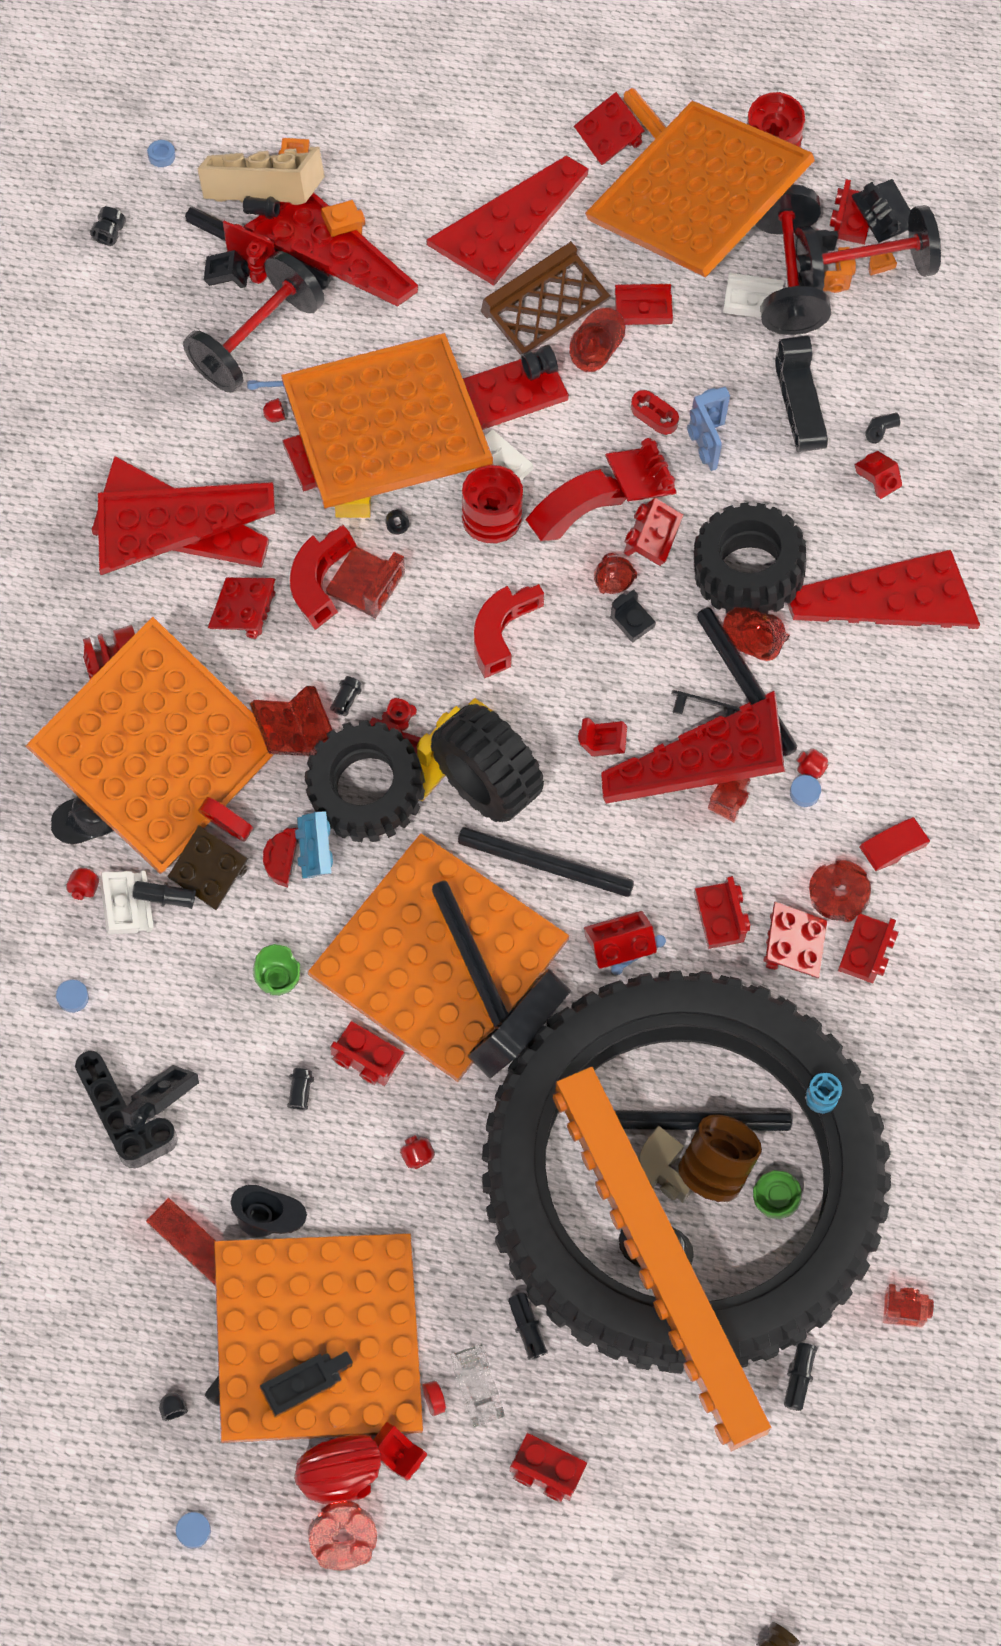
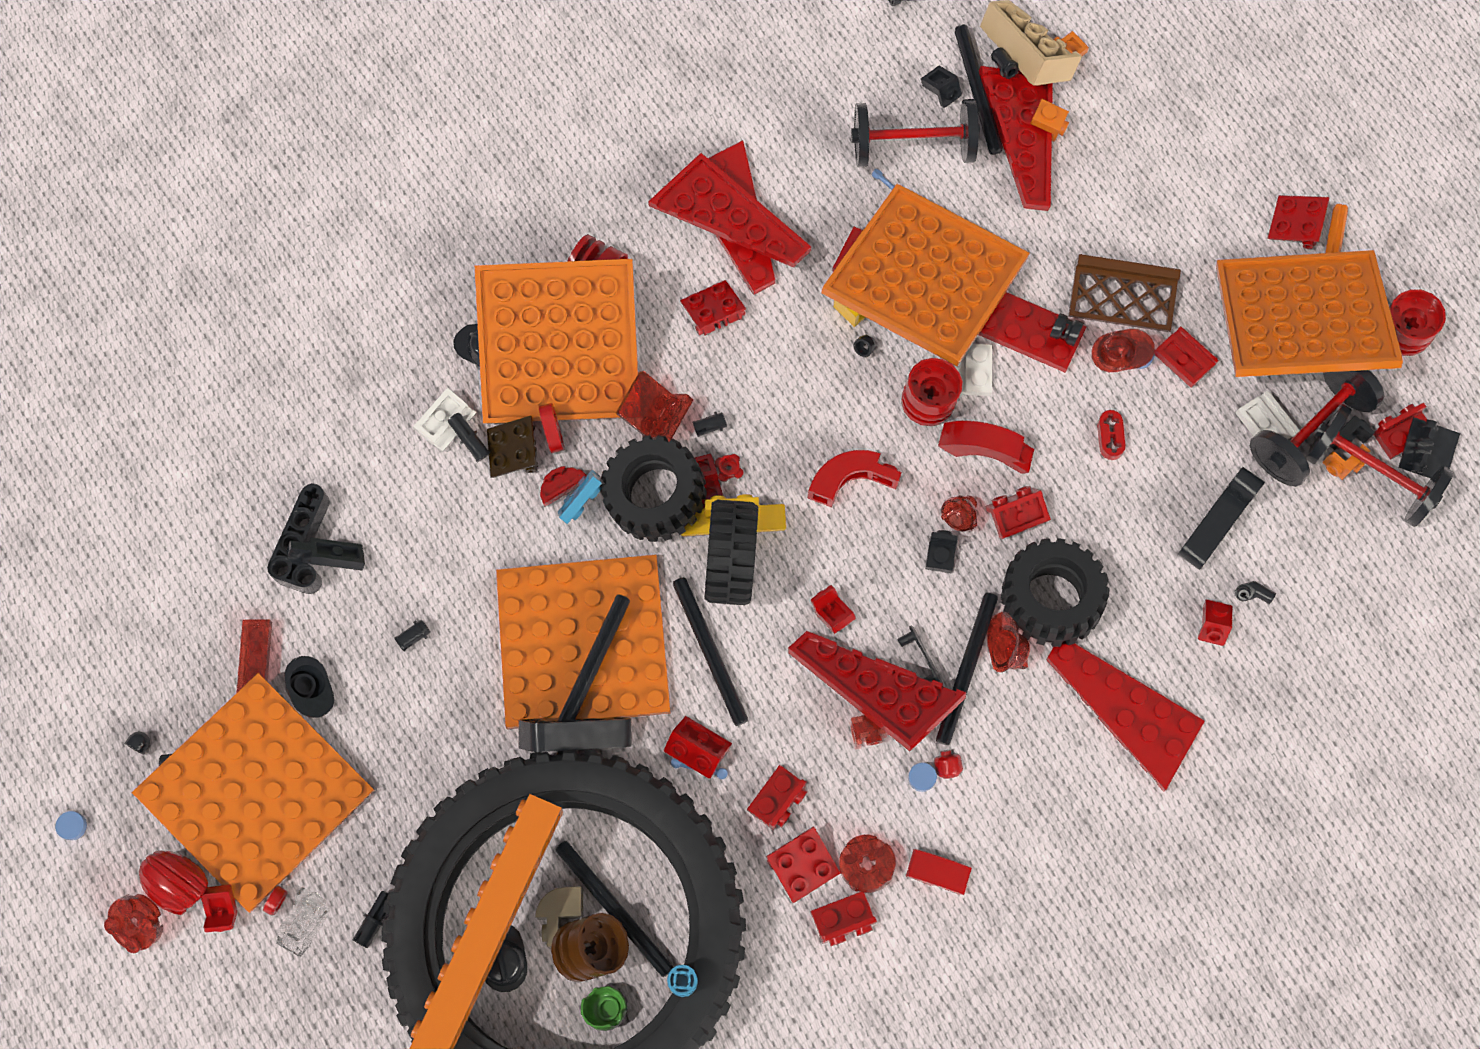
camera: 50 degrees right, 5 degrees up
(72, 996) = (355, 444): medium blue tile -> none
(82, 883) = (436, 383): red piece -> none
(250, 247) = (967, 86): red hinge -> none
(274, 411) = (870, 203): red hinge -> none
(276, 970) = (477, 549): bright green hair -> none
(304, 1382) = (207, 810): black hinge -> none
(309, 571) = (772, 325): red arch -> none
(366, 580) = (803, 364): clear red bracket -> none
(366, 1054) = (472, 655): red bracket -> none
(417, 1152) = (436, 745): red piece -> none
(504, 227) = (1148, 220): red wing -> none
(548, 1468) = (288, 1015): red bracket -> none
(642, 472) = (1054, 465): red hinge -> none
(707, 413) = (1139, 467): medium blue bracket -> none
(881, 263) = (1385, 484): orange tile -> none

